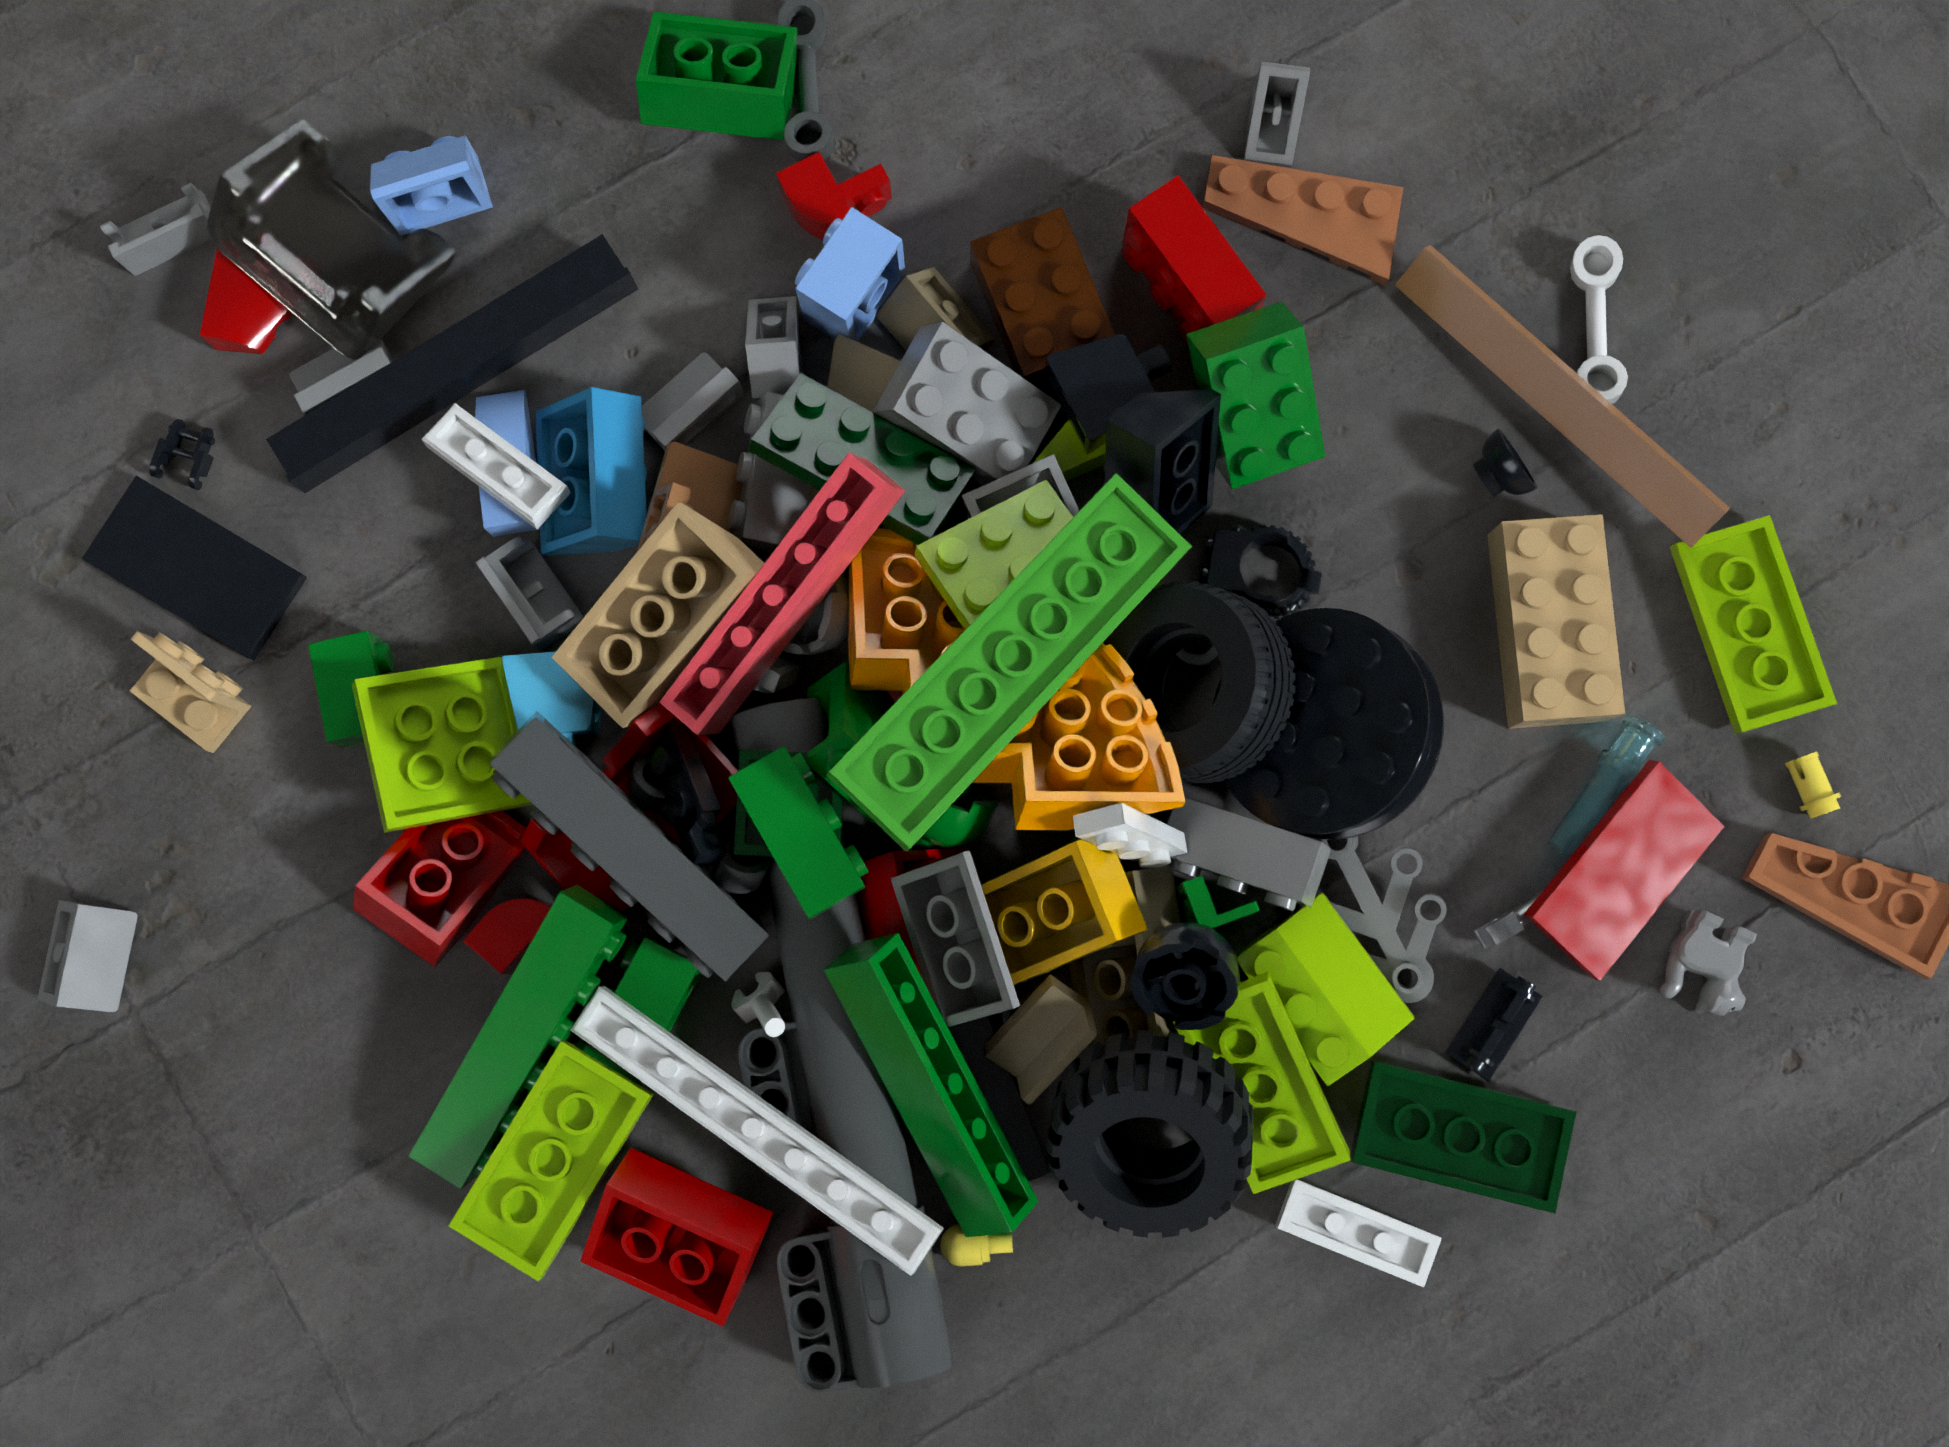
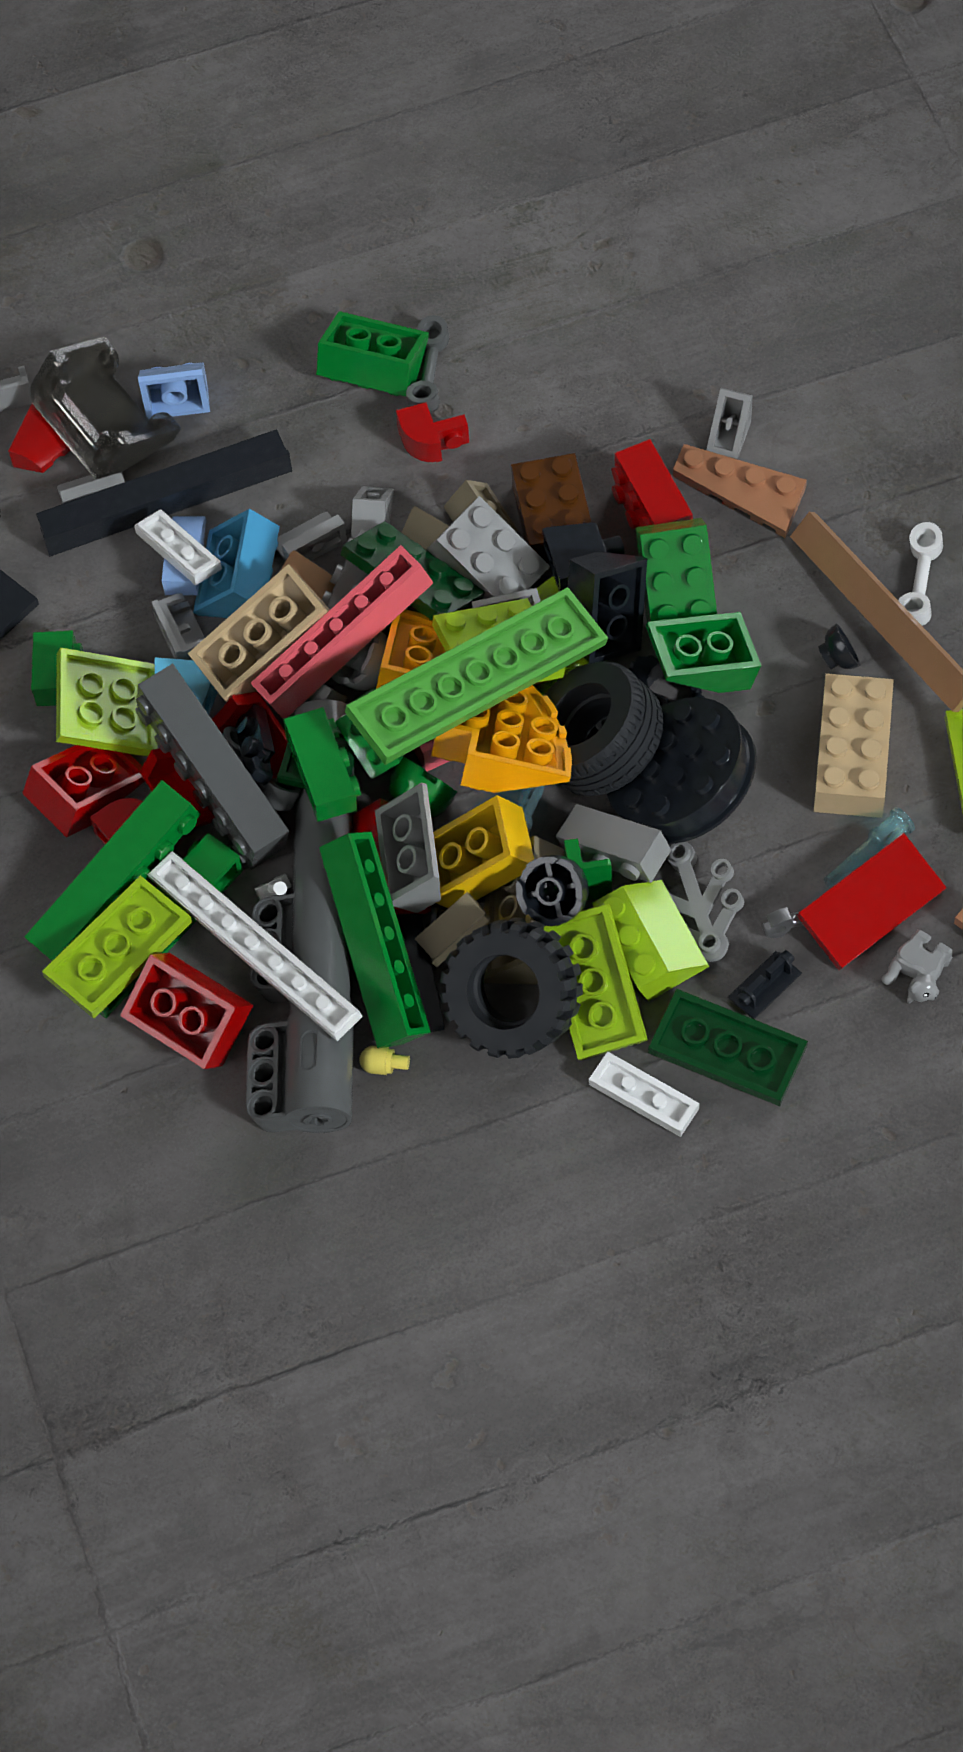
camera: 15 degrees right, 20 degrees down
(850, 276) = (429, 473): light blue brick -> none
(1130, 835) = (535, 802): white plate -> none
(1320, 513) = (706, 652): none -> green slope

